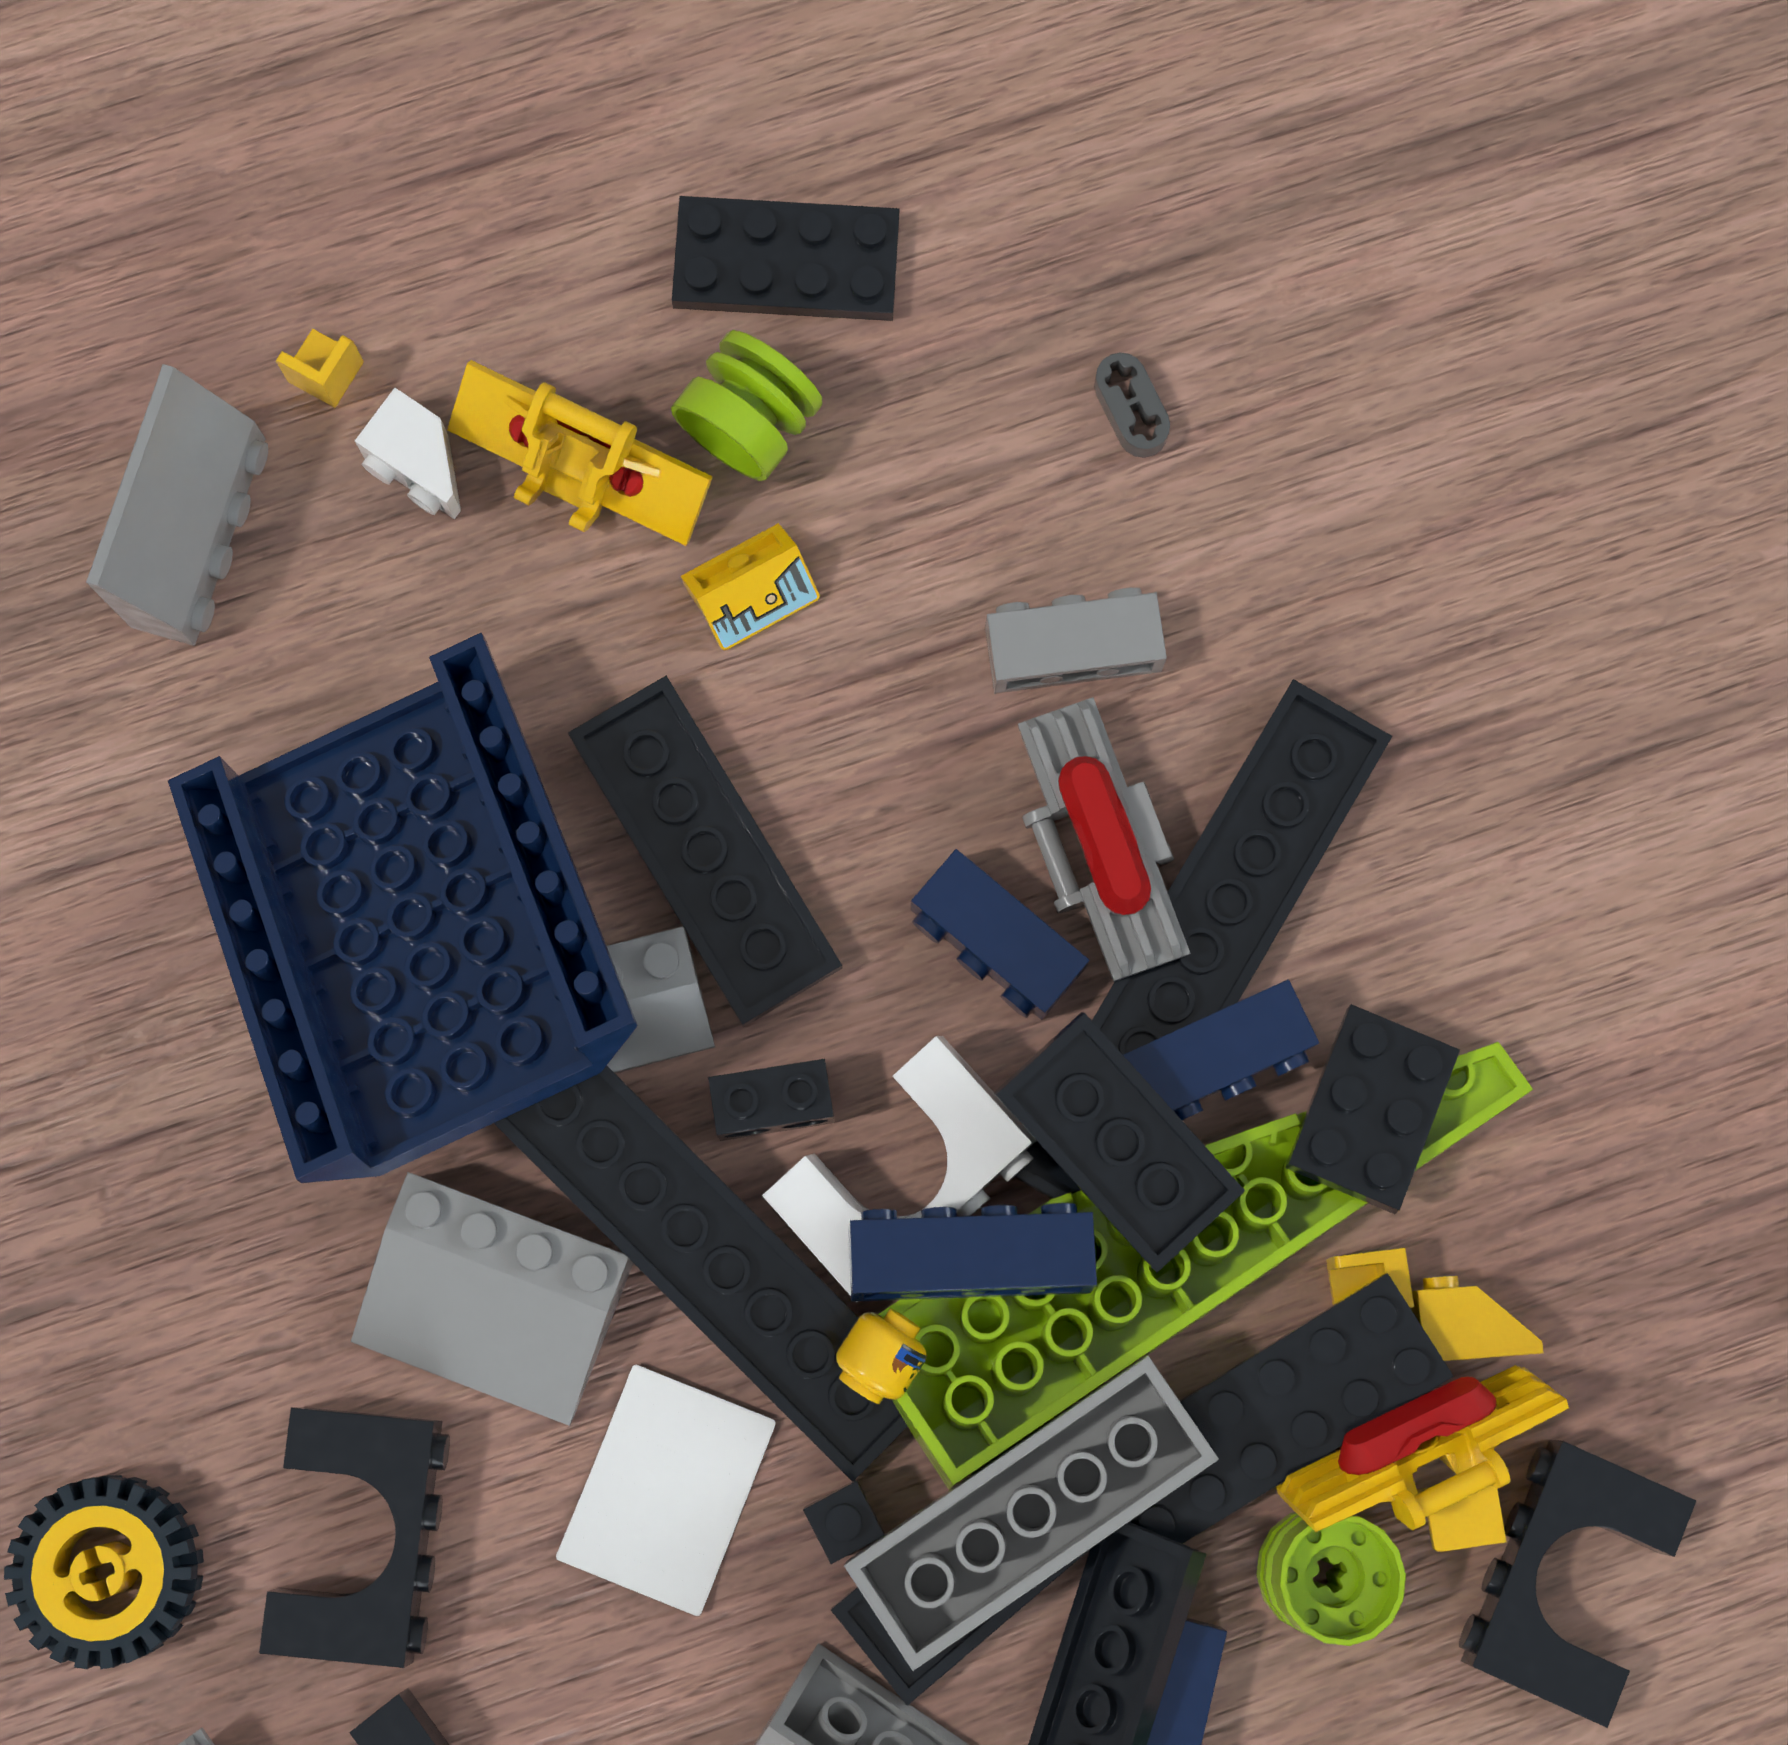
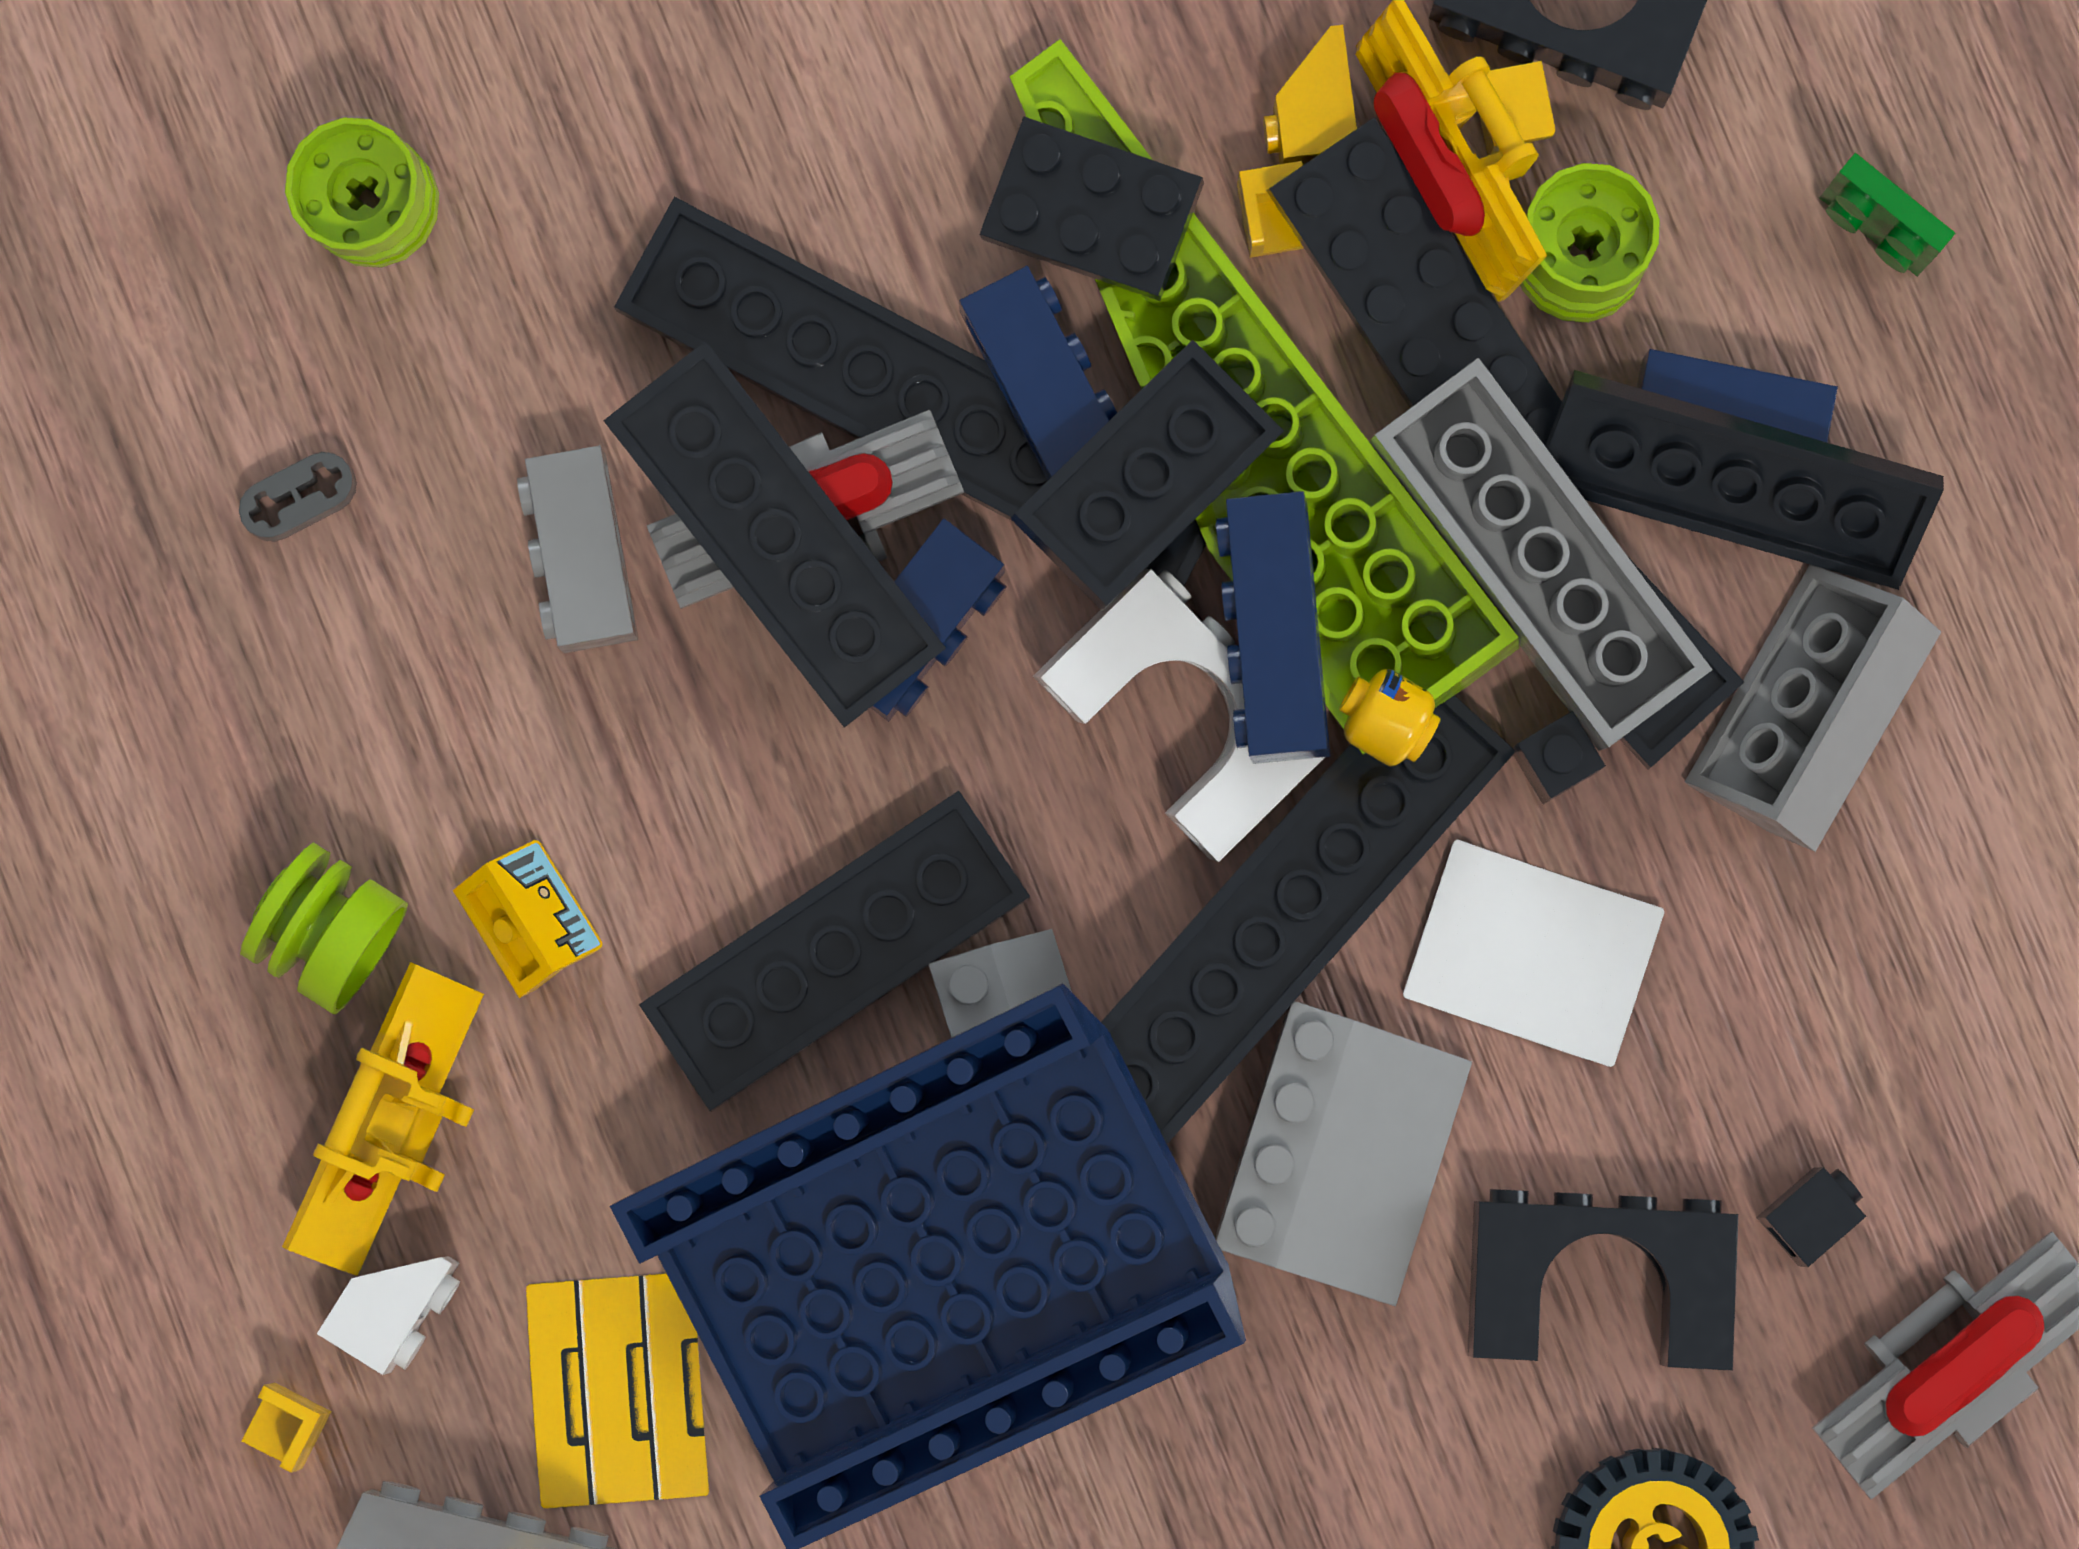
camera: 90 degrees left, 5 degrees up
(330, 644) = (615, 1392): none -> yellow sticker
(771, 1100) = (1111, 858): black brick -> none
(785, 258) = (134, 899): black plate -> none
(1077, 800) = (774, 534): none -> black plate
(1405, 433) = (332, 172): none -> lime wheel

